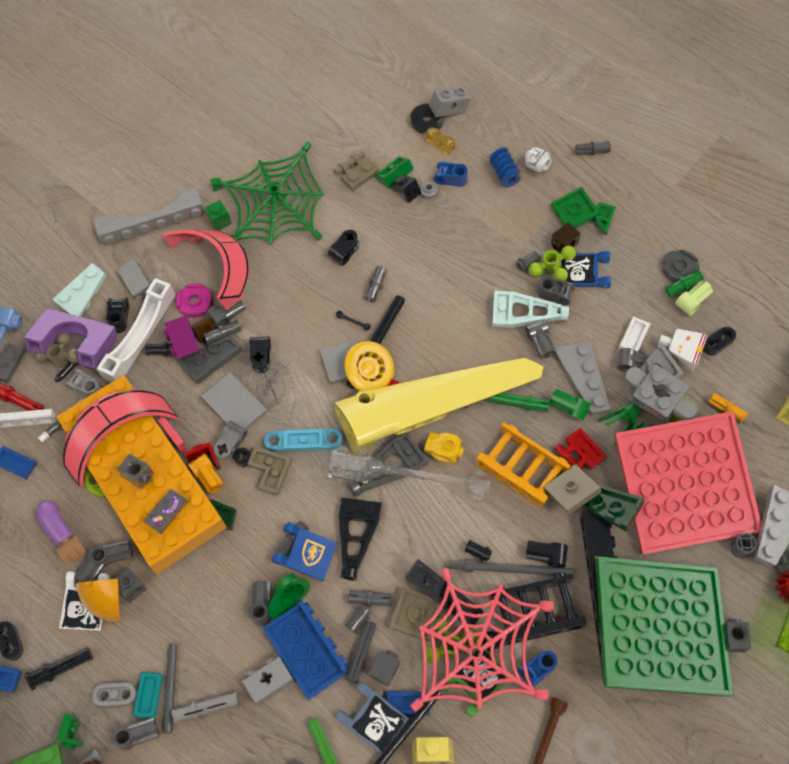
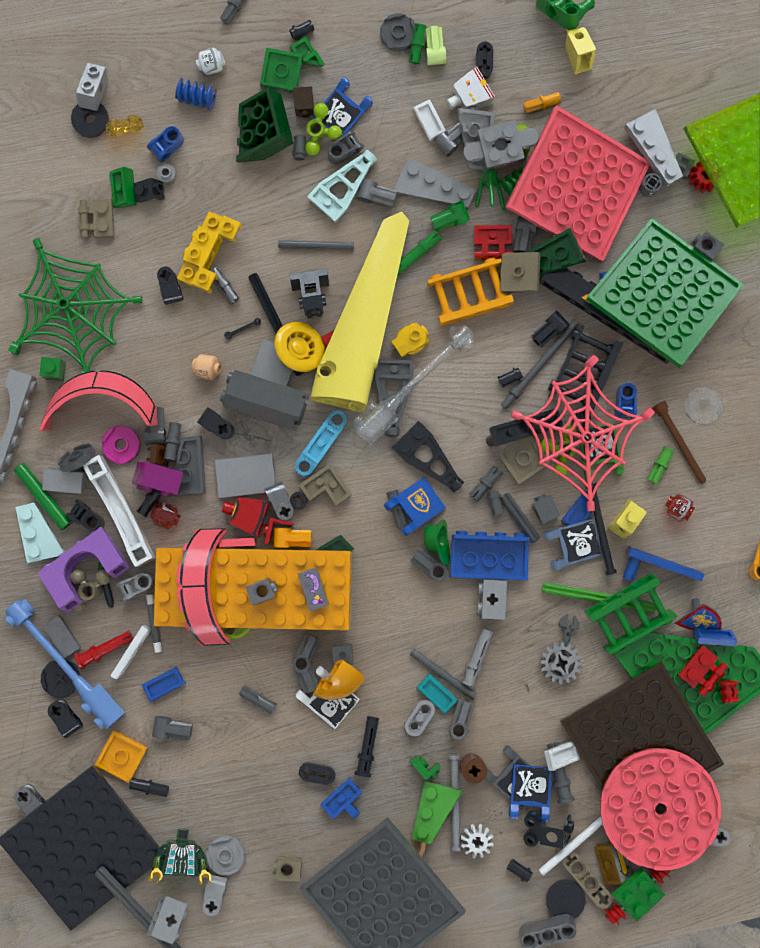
camera: 60 degrees left, 20 degrees up
(46, 547) = (257, 699): none -> dark grey axle
(57, 530) = (256, 683): medium lavender piece -> none
(113, 275) = (42, 496): none -> green piece
(157, 366) = (165, 515): none -> clear red head
(158, 273) = (80, 456): none -> dark grey tile
(200, 426) = (247, 514): none -> red torso
(300, 314) = (206, 367): none -> light nougat head
(305, 371) = (264, 400): none -> dark grey brick
(391, 251) = (204, 248): none -> yellow bracket
(412, 351) = (311, 302): none -> black tile
(464, 327) = (316, 245): none -> dark grey bar
(506, 747) = (660, 465): none -> bright green axle
(520, 225) = (262, 126): none -> dark green wedge
(608, 473) = (525, 232): none -> dark grey piece
(617, 201) = (302, 29): none -> black pin

